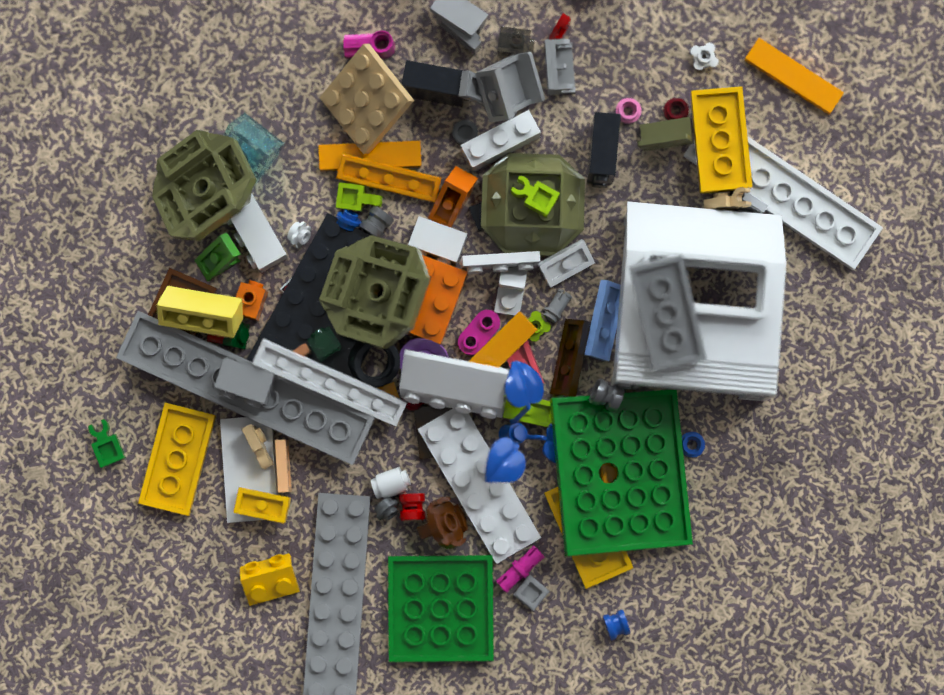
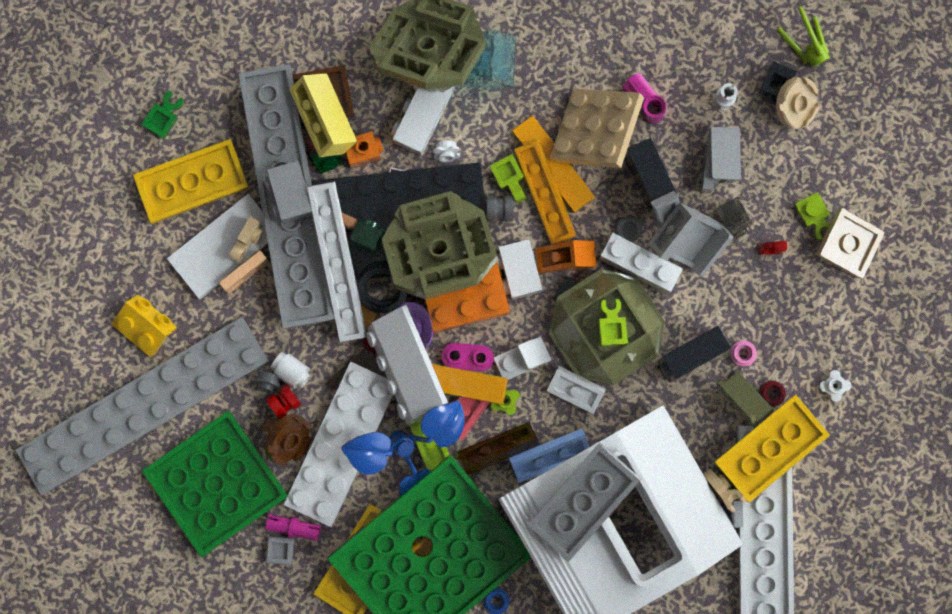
camera: 55 degrees right, 0 degrees up
(218, 257) = (380, 98): bright green slope -> none
(262, 505) = (199, 277): yellow plate -> none
(348, 219) = (486, 183): blue plate -> none
(499, 262) = (537, 333): white plate -> none
(557, 306) = (535, 407): light grey pin -> none
(559, 66) = (740, 270): light grey hinge -> none
(606, 395) = (485, 499): flat silver wheel -> none
(794, 76) = (872, 474): light orange tile -> none

